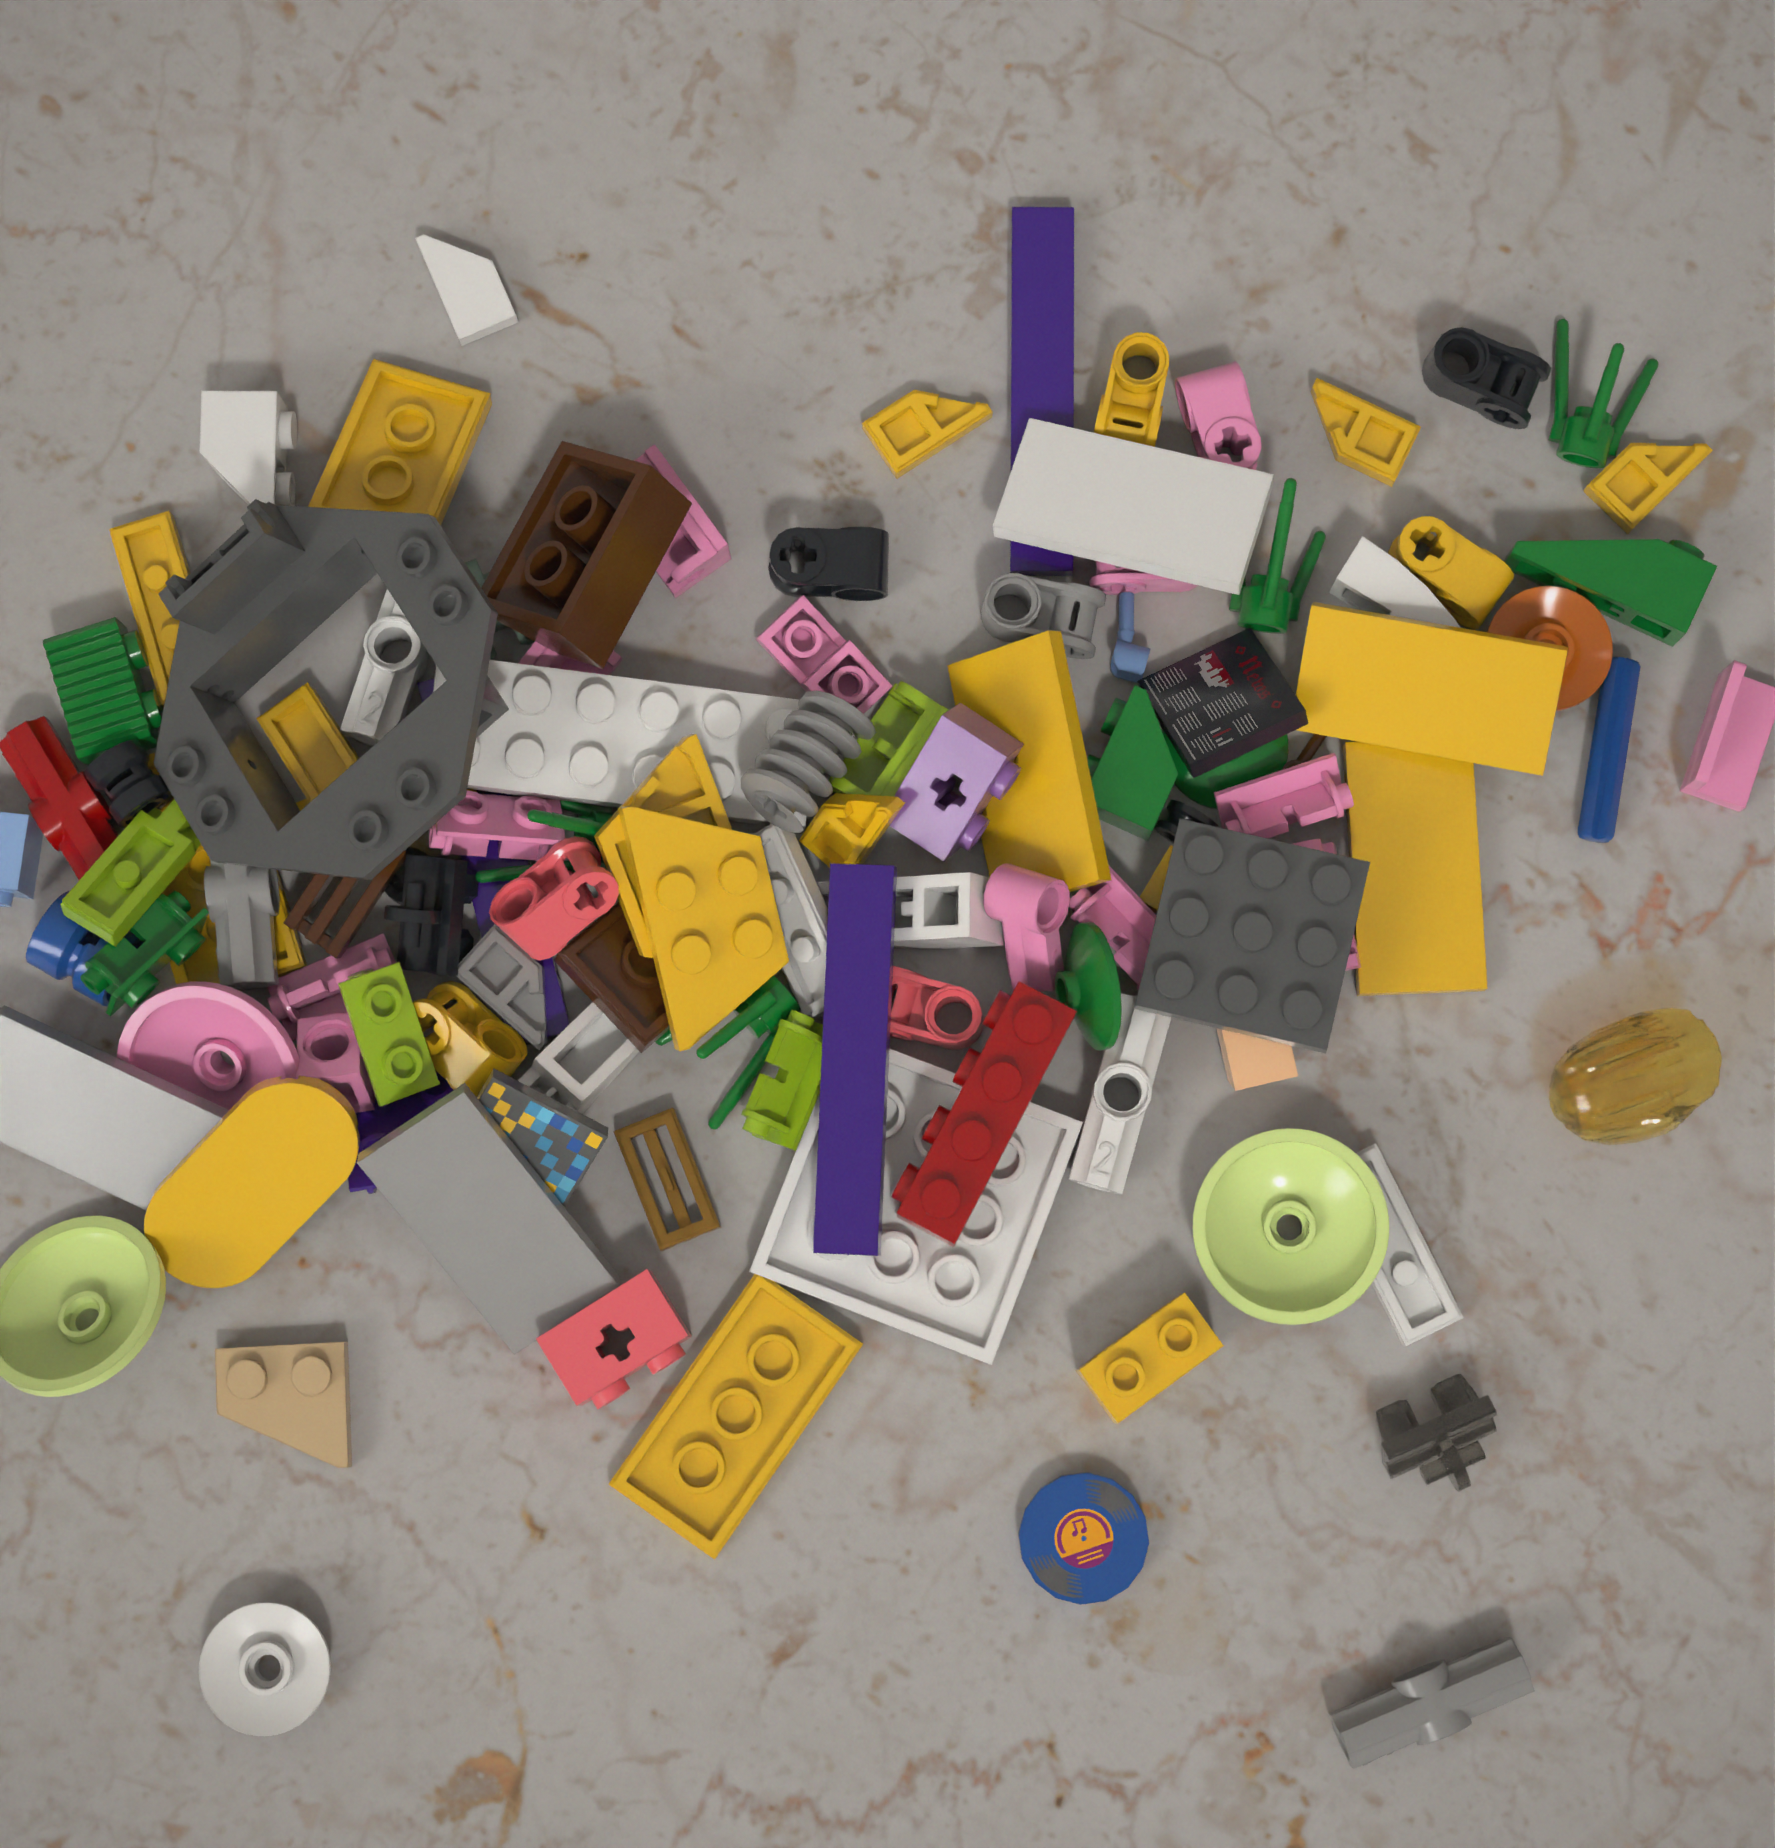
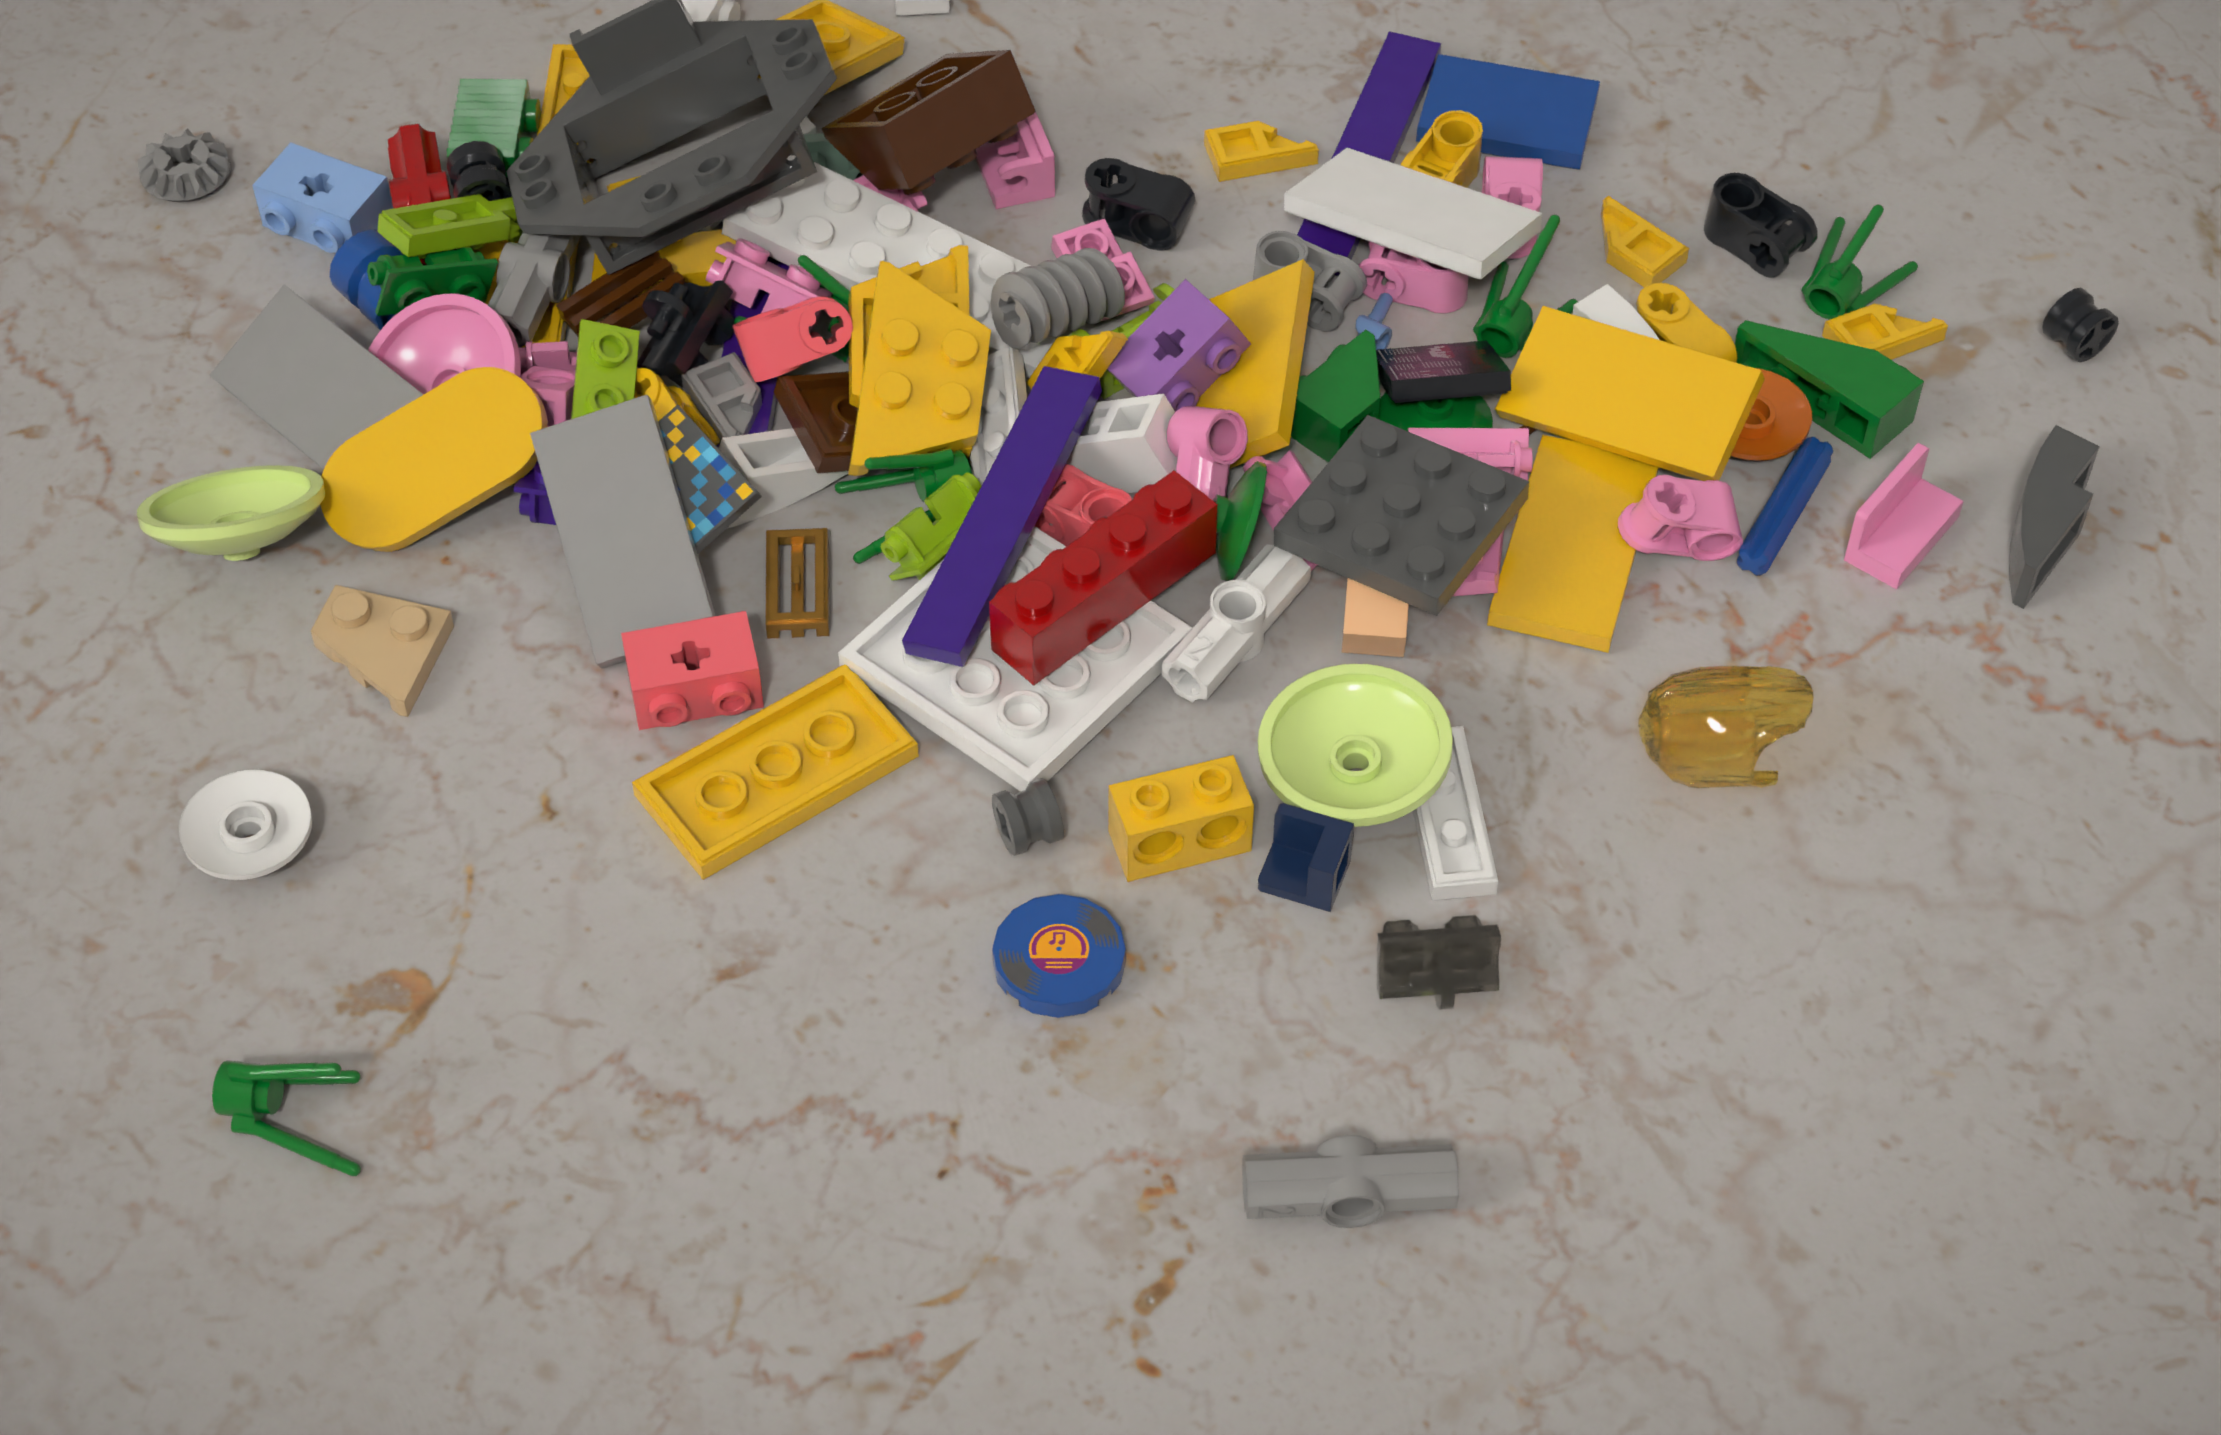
camera: 15 degrees right, 30 degrees down
(1002, 1401) = (1027, 816): none -> dark grey wheel
(1174, 278) = (1519, 108): none -> blue tile
(1278, 1358) = (1307, 857): none -> dark blue panel
(1518, 820) = (1683, 519): none -> bright pink piece

